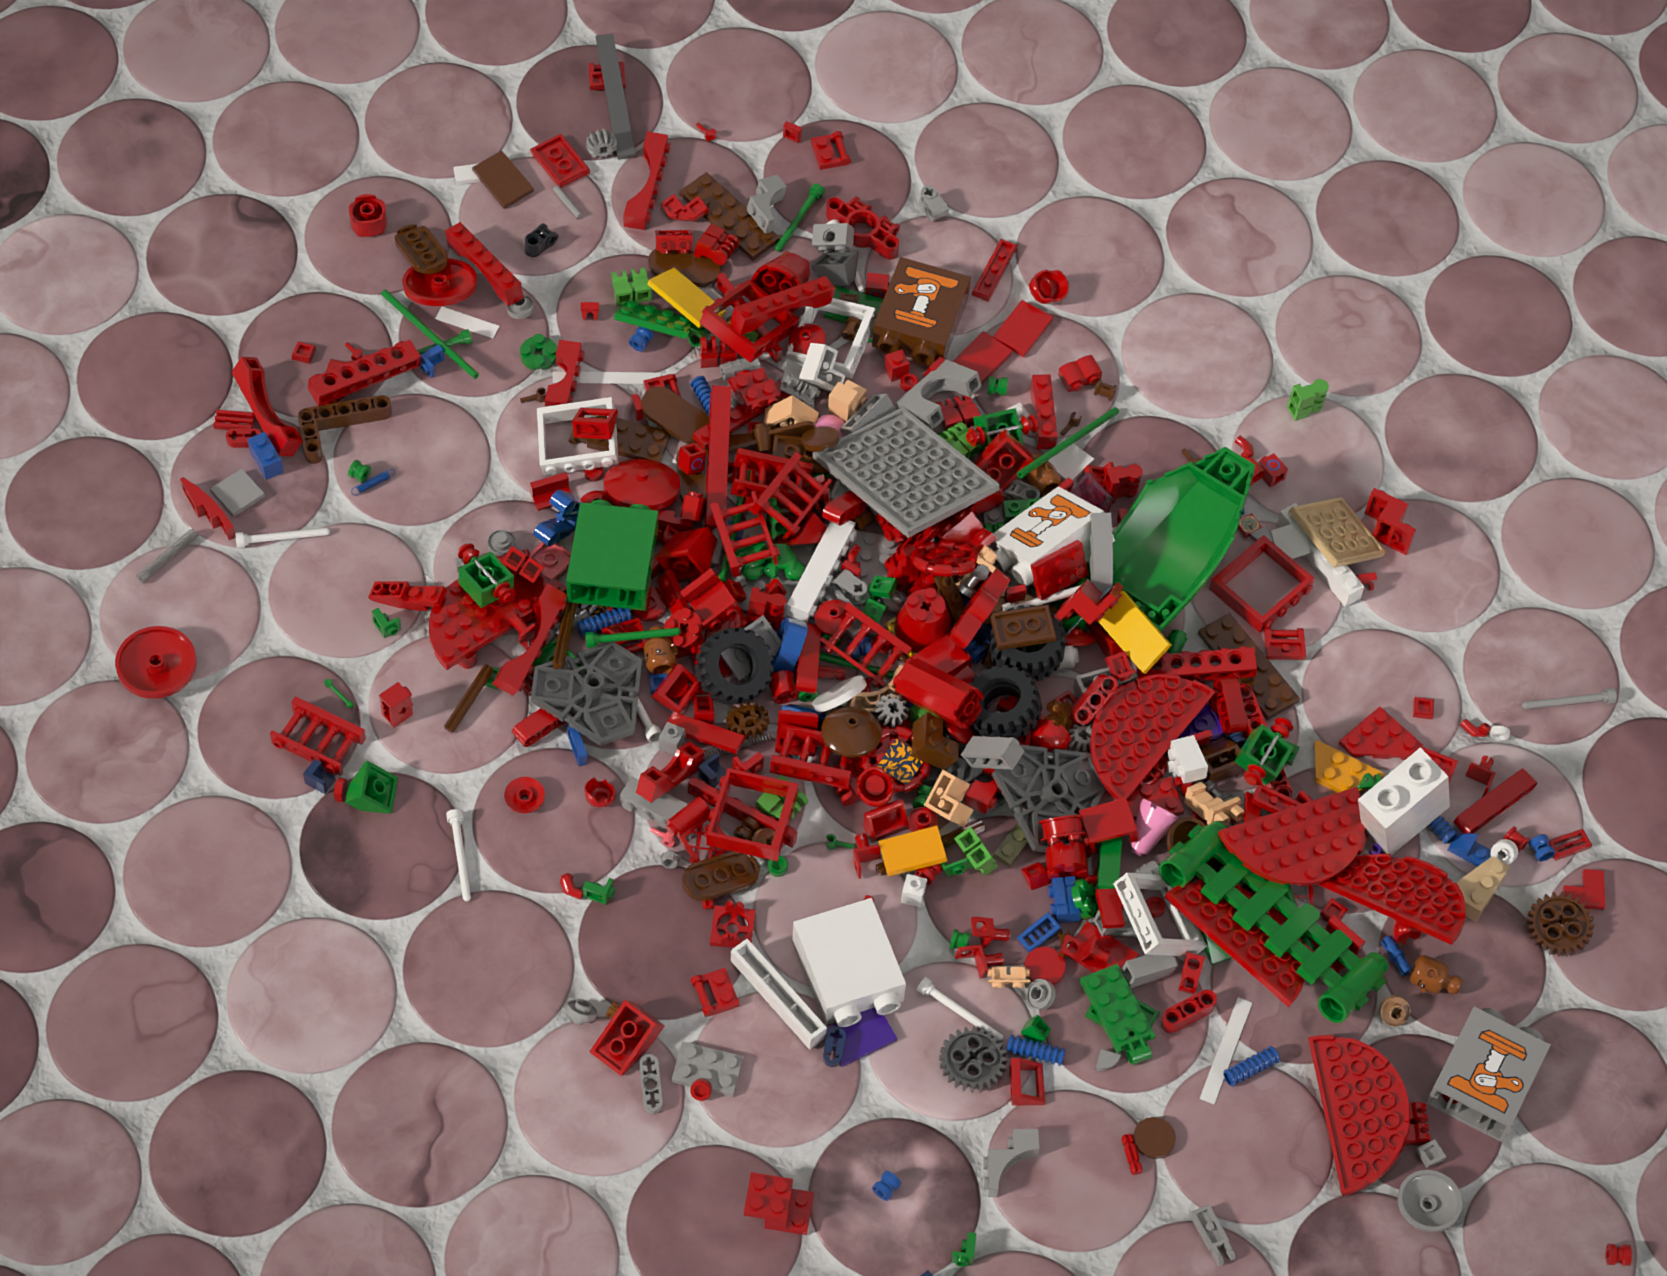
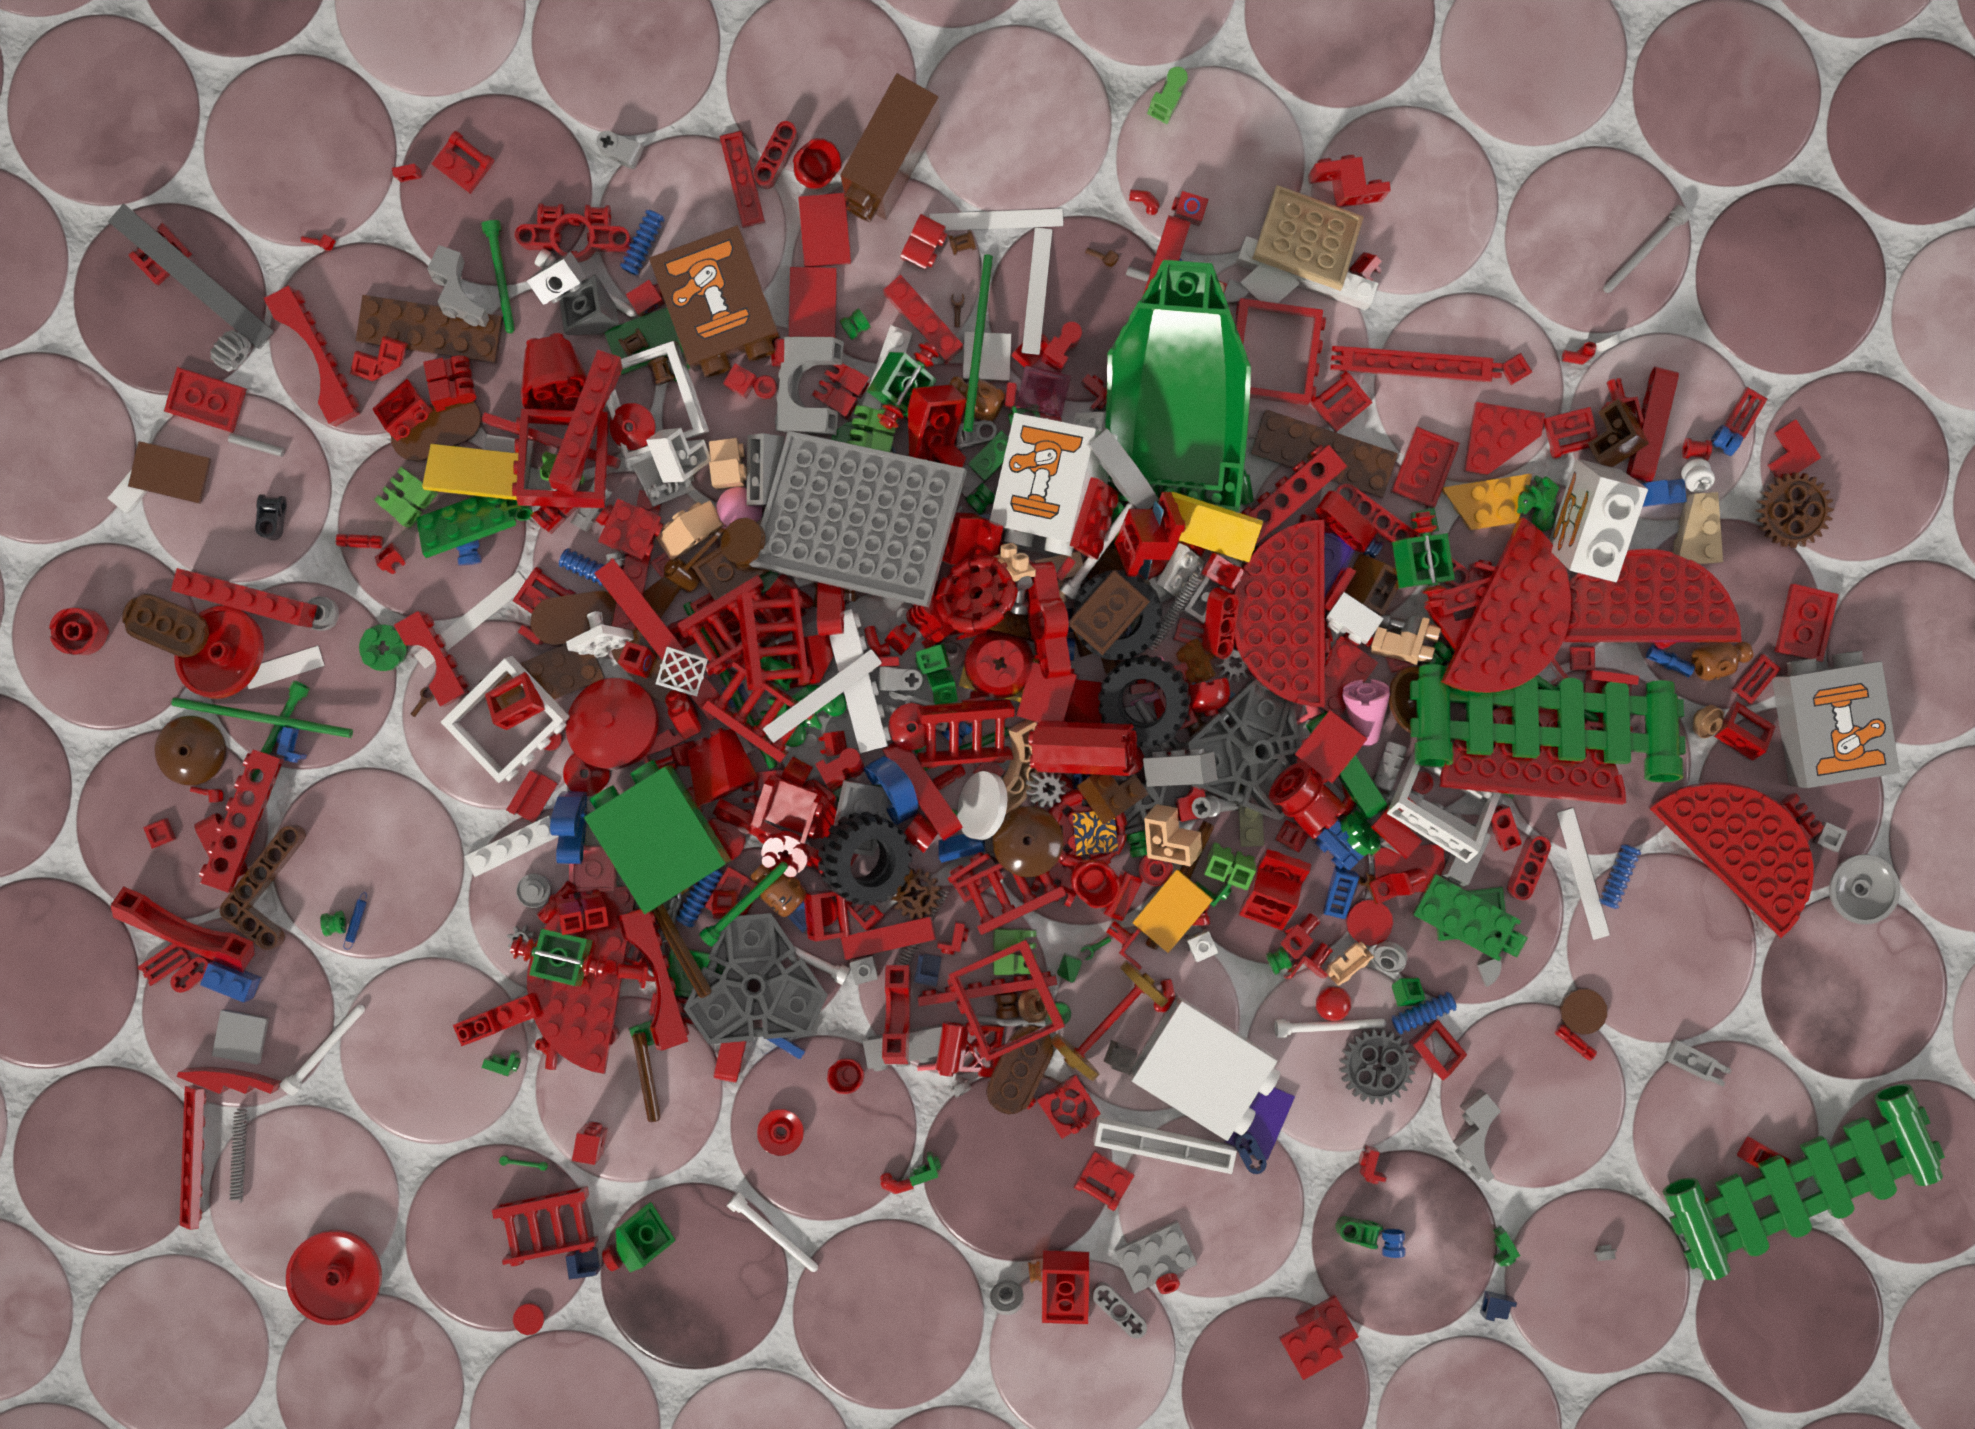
camera: 40 degrees left, 30 degrees up
(143, 530) = (192, 1157): none -> red plate
(250, 785) = (528, 1319): none -> red piece
(368, 331) = (204, 746): none -> reddish brown dish
(421, 640) = (551, 1054): none -> red arm
(510, 511) = (510, 846): none -> white plate
(579, 289) = (359, 541): none -> red axle
(681, 427) = (600, 638): none -> white plate
(704, 488) = (677, 687): none -> white window
(793, 549) = (822, 696): none -> white sticker
(793, 914) = (1120, 1057): none -> clear smoke window
(812, 842) = (1069, 967): none -> green slope
(853, 878) = (1075, 1056): none -> pearl gold piece
(870, 565) = (899, 639): none -> red tile
(871, 1162) = (1363, 1232): none -> green piece
(913, 253) = (642, 242): none -> blue piece
(913, 1118) = (1368, 1161): none -> red bracket
(976, 999) = (1333, 1003): none -> red hair
(995, 889) = (1275, 889): none -> red bracket
(996, 797) = (1212, 806): none -> light grey pin
(1025, 269) = (775, 143): none -> red beam
(1089, 668) = (1176, 605): none -> light grey piece
(1090, 653) = (1179, 570): none -> white plate
(1101, 301) = (890, 149): none -> reddish brown brick
(1131, 445) = (1037, 291): none -> white sticker
(1143, 399) = (1000, 219): none -> white sticker
(1315, 721) = (1425, 467): none -> red tile
(1354, 656) = (1415, 364): none -> red hinge
(1412, 1042) = (1739, 738): none -> red tile
(1450, 1022) = (1743, 693): none -> red tile
(1467, 785) = (1622, 435): none -> reddish brown brick
(1519, 999) = (1806, 622): none -> red plate

